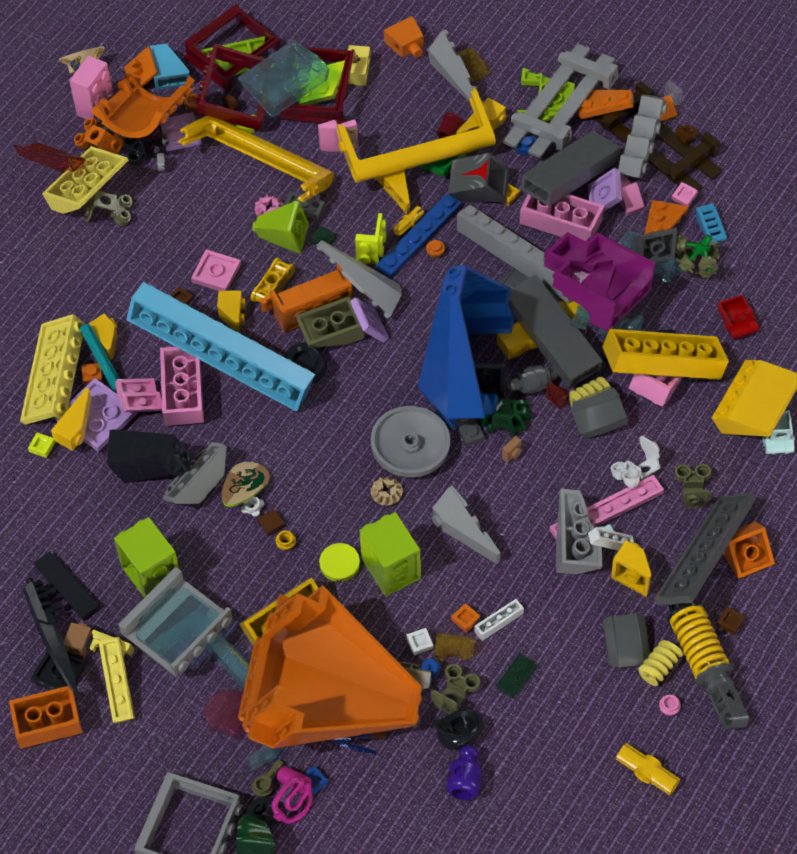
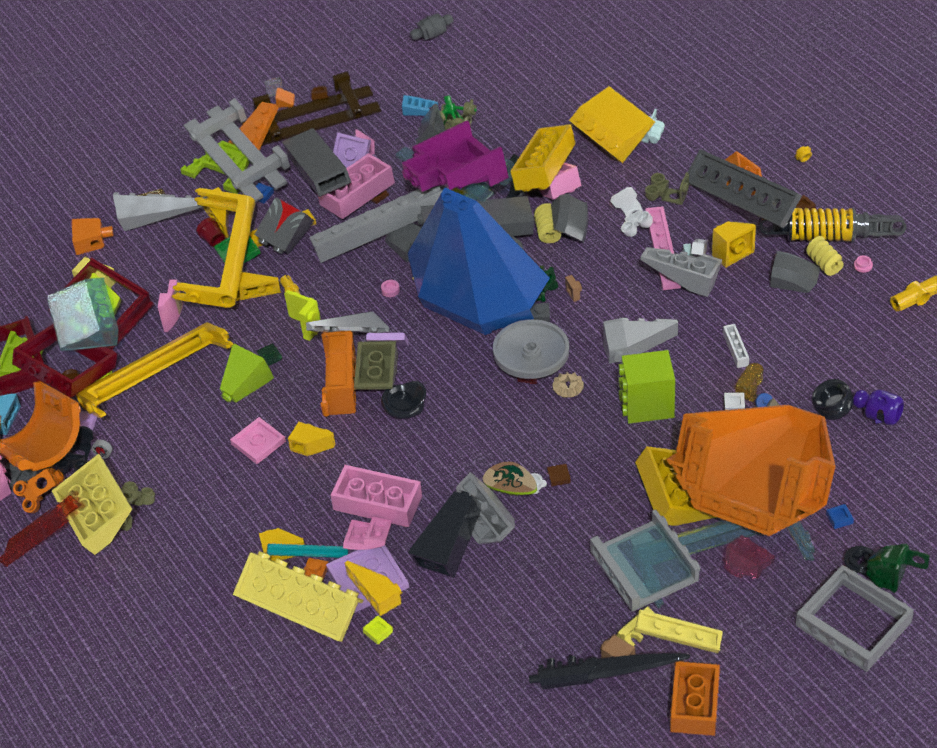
camera: 65 degrees left, 10 degrees down
(48, 675) = (643, 686): black tile -> none
(66, 585) = (557, 648): black tile -> none
(145, 555) = (565, 564): lime container -> none
(182, 295) = (272, 476): reddish brown plate -> none
(220, 346) = (362, 442): medium azure brick -> none
(260, 206) = (208, 389): bright pink gear -> none
(263, 785) = (831, 551): olive plate -> none
(279, 273) = (299, 401): yellow piece -> none
(285, 535) = (584, 468): yellow plate -> none
(300, 784) = (843, 521): dark pink piece -> none
(312, 208) = (220, 358): dark grey plate -> none
(339, 562) = (625, 437): neon yellow tile -> none
(418, 235) = (308, 284): blue plate -> none
(435, 248) = (332, 281): orange plate -> none
(456, 687) = (791, 390): olive piece -> none
(465, 618) = (724, 366): orange plate -> none
(516, 676) = (794, 351): clear green plate -> none
(556, 395) = (534, 245): clear red plate -> none
(643, 133) = (303, 113): light grey brick -> none
(664, 216) = (397, 130): orange wing -> none
(684, 194) = (381, 111): bright pink plate -> none
(737, 317) = (521, 117): red piece -> none

